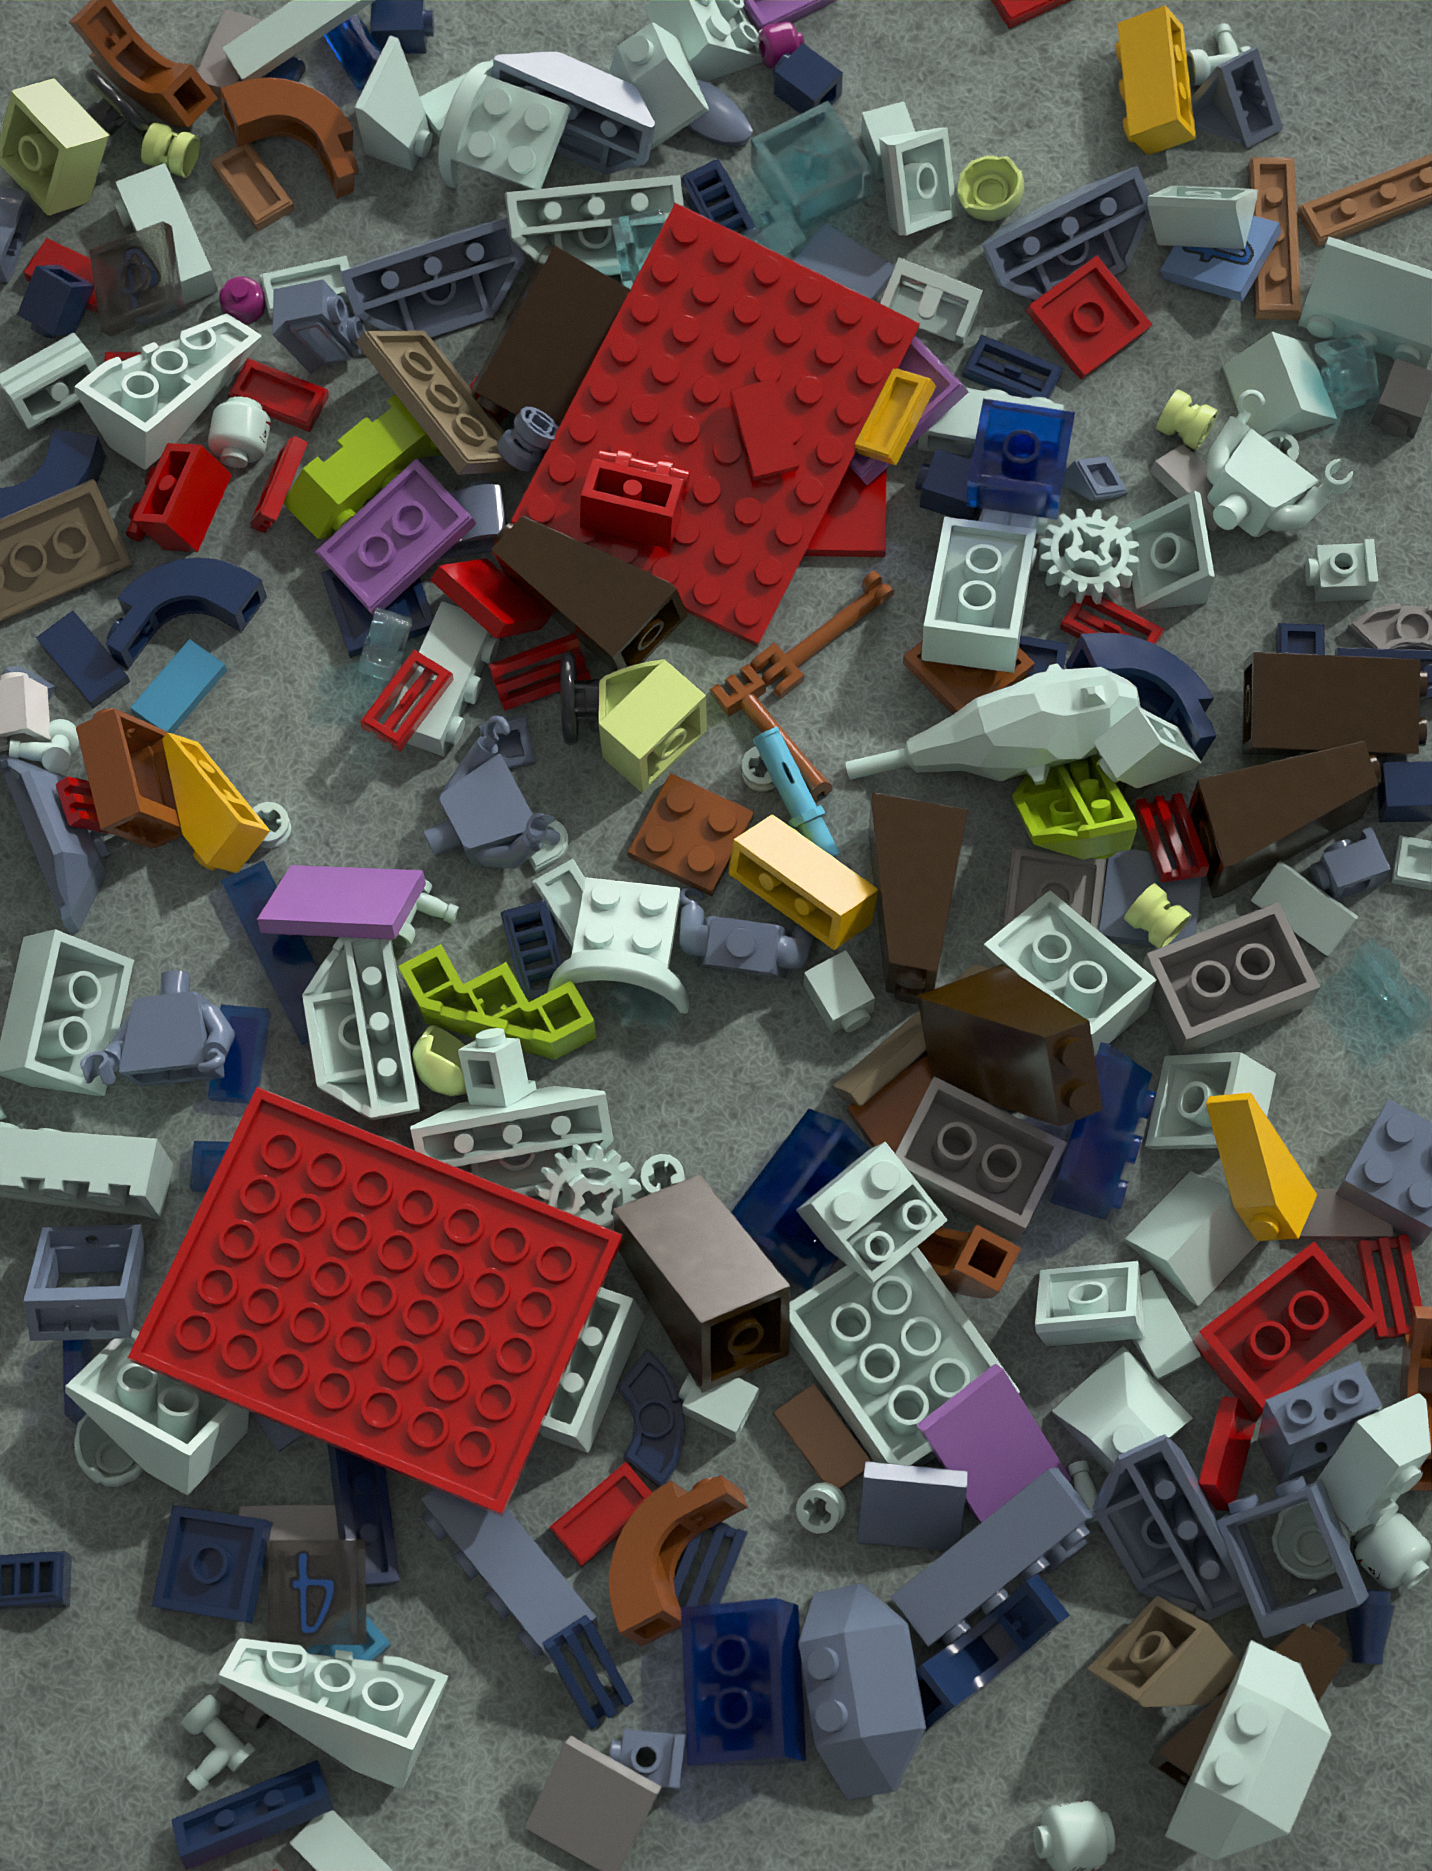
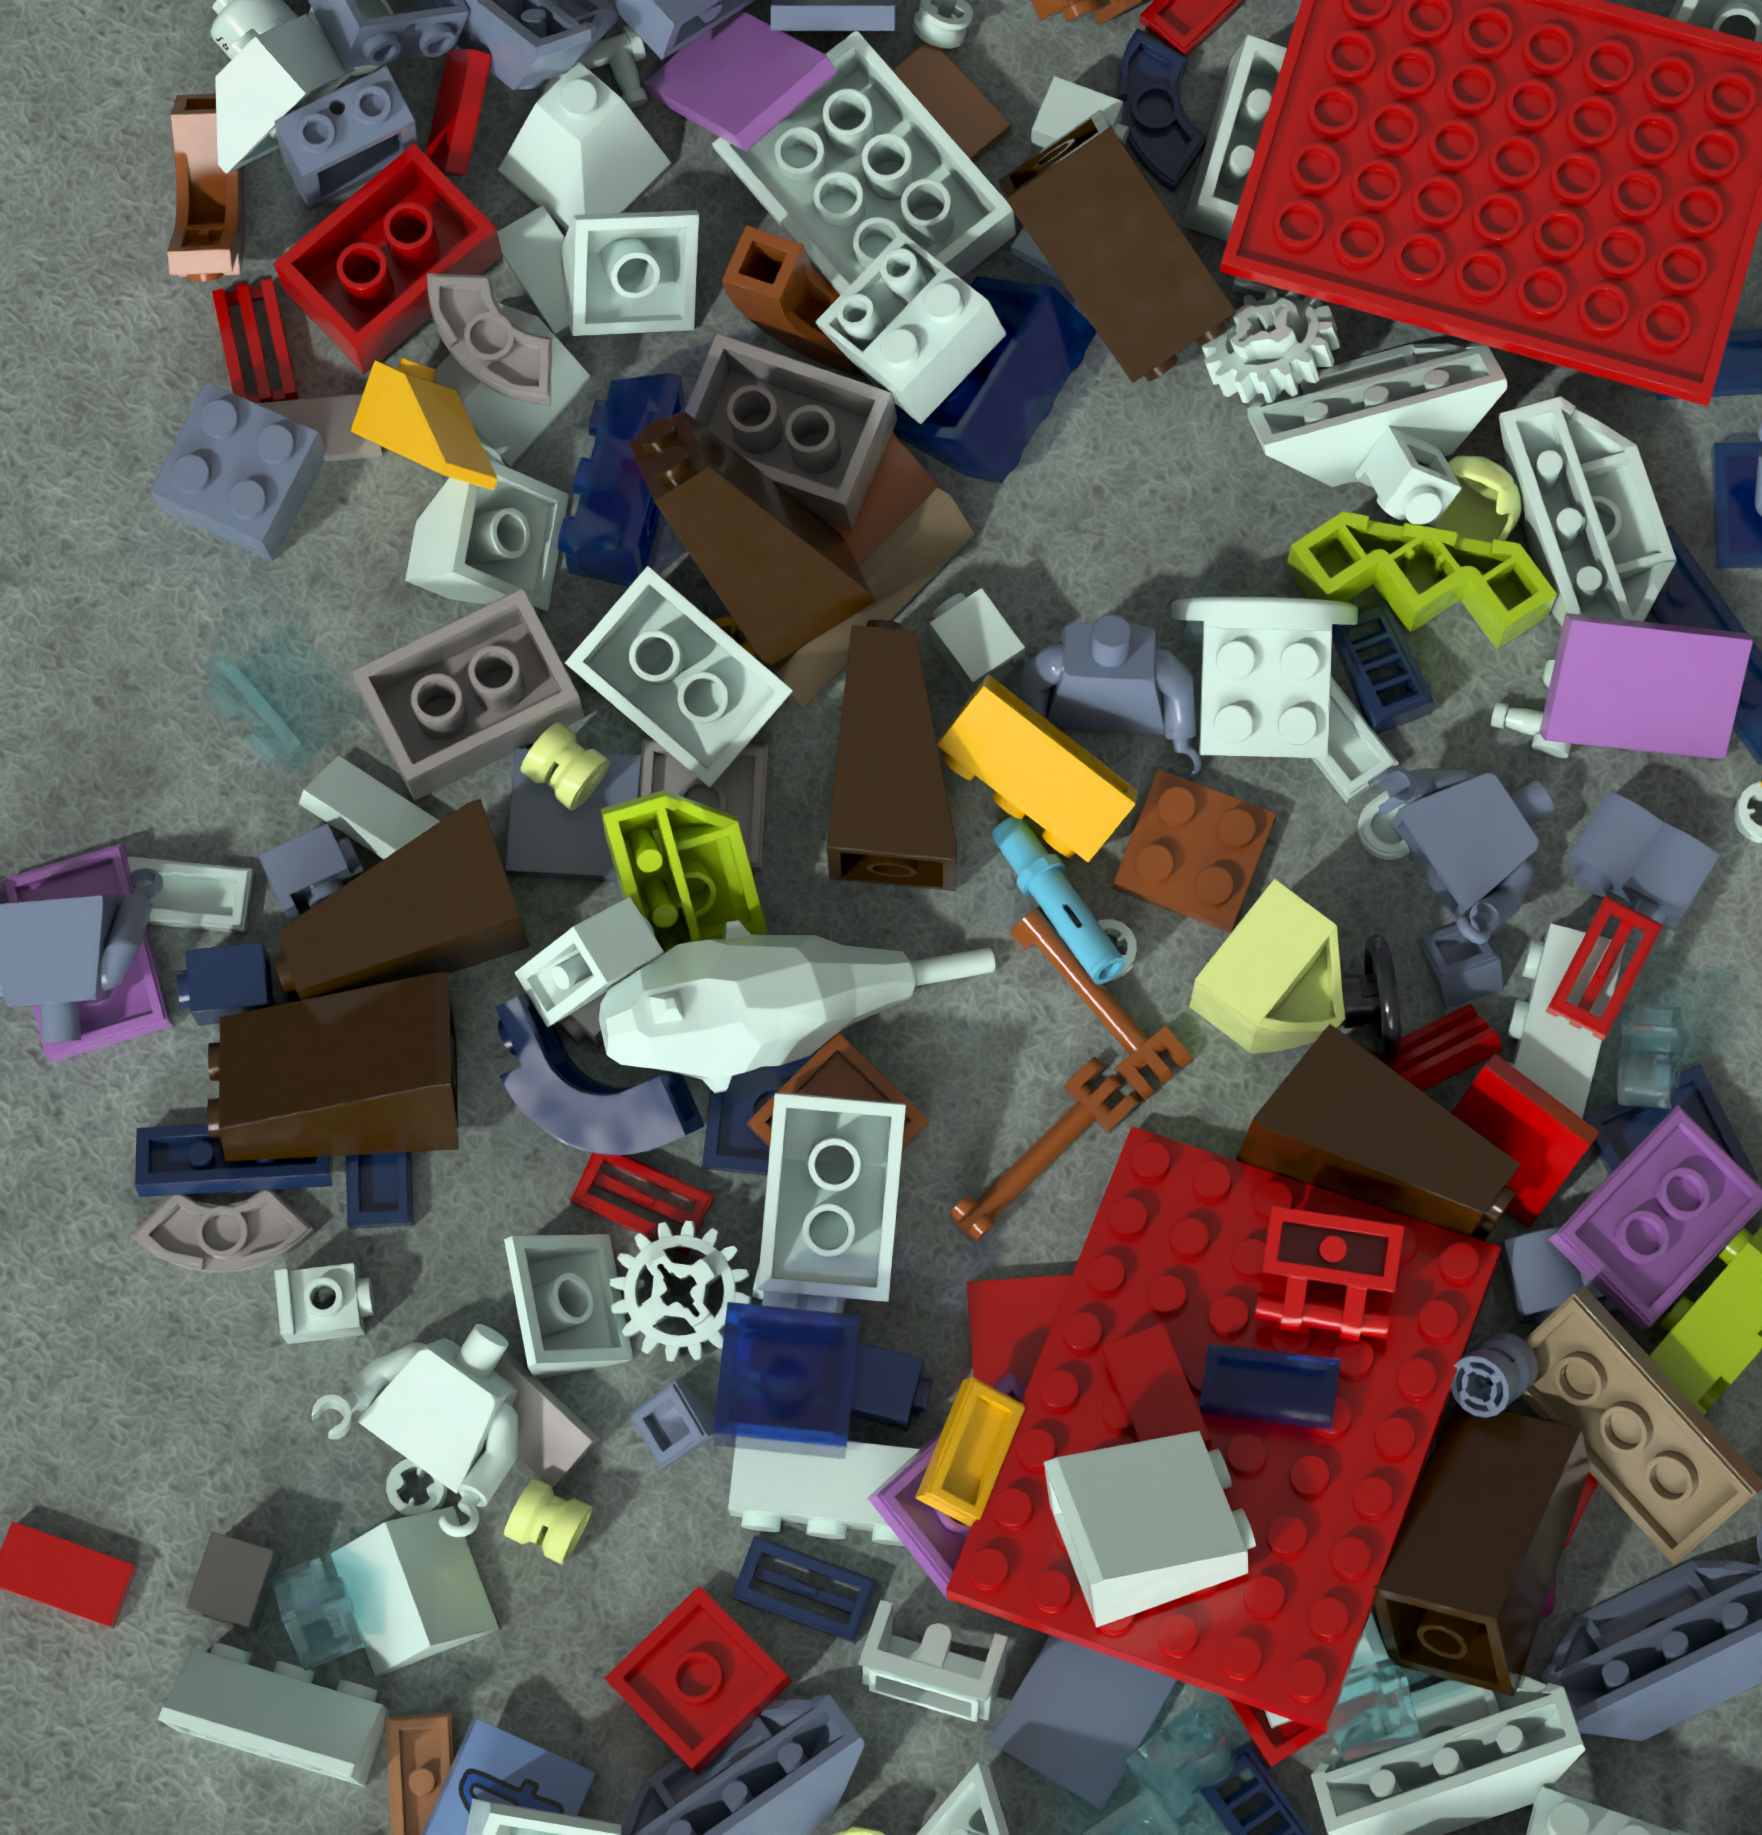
camera: 175 degrees right, 5 degrees up
(365, 791) = (1641, 860): none -> sand blue brick
(656, 1161) = (1173, 415): light aqua bush -> none
(685, 428) = (1270, 1386): none -> clear blue tile
(783, 323) = (1147, 1523): none -> light aqua slope
(1163, 808) = (522, 888): red tile -> none
(1209, 1238) = (488, 342): none -> light grey tile

